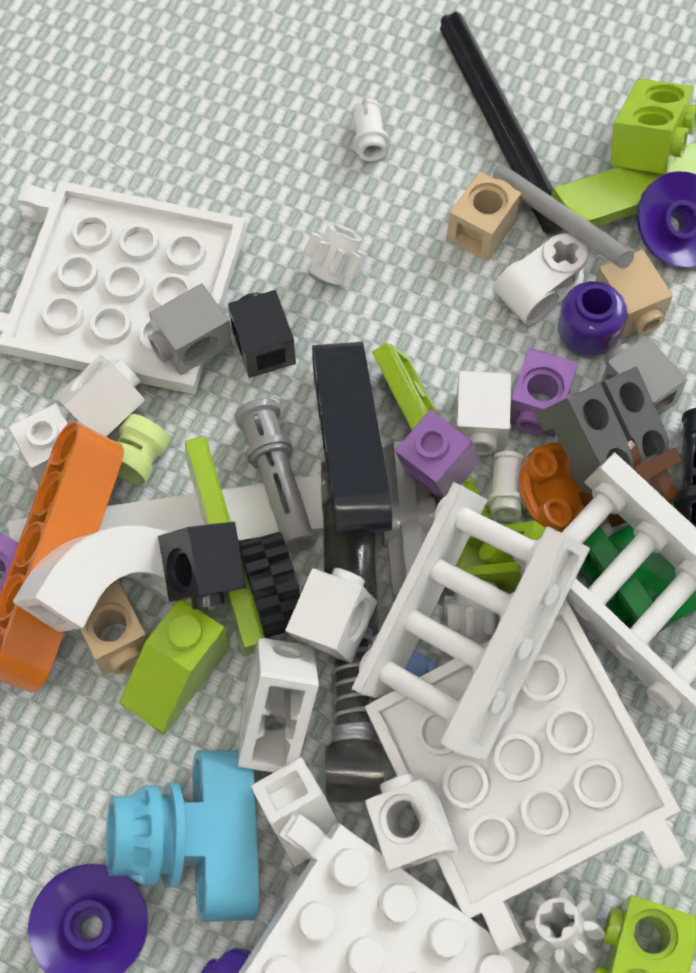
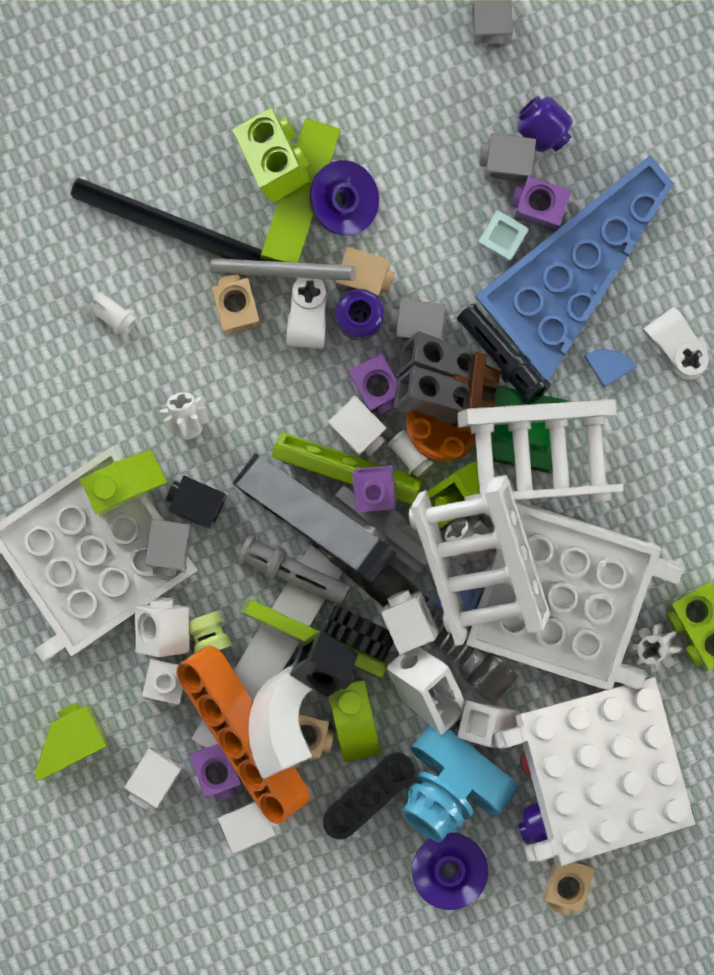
camera: 50 degrees left, 20 degrees up
(79, 739) = (361, 813): none -> black beam
(213, 241) = (123, 482): none -> lime slope
(434, 834) = (552, 693): white brick -> none

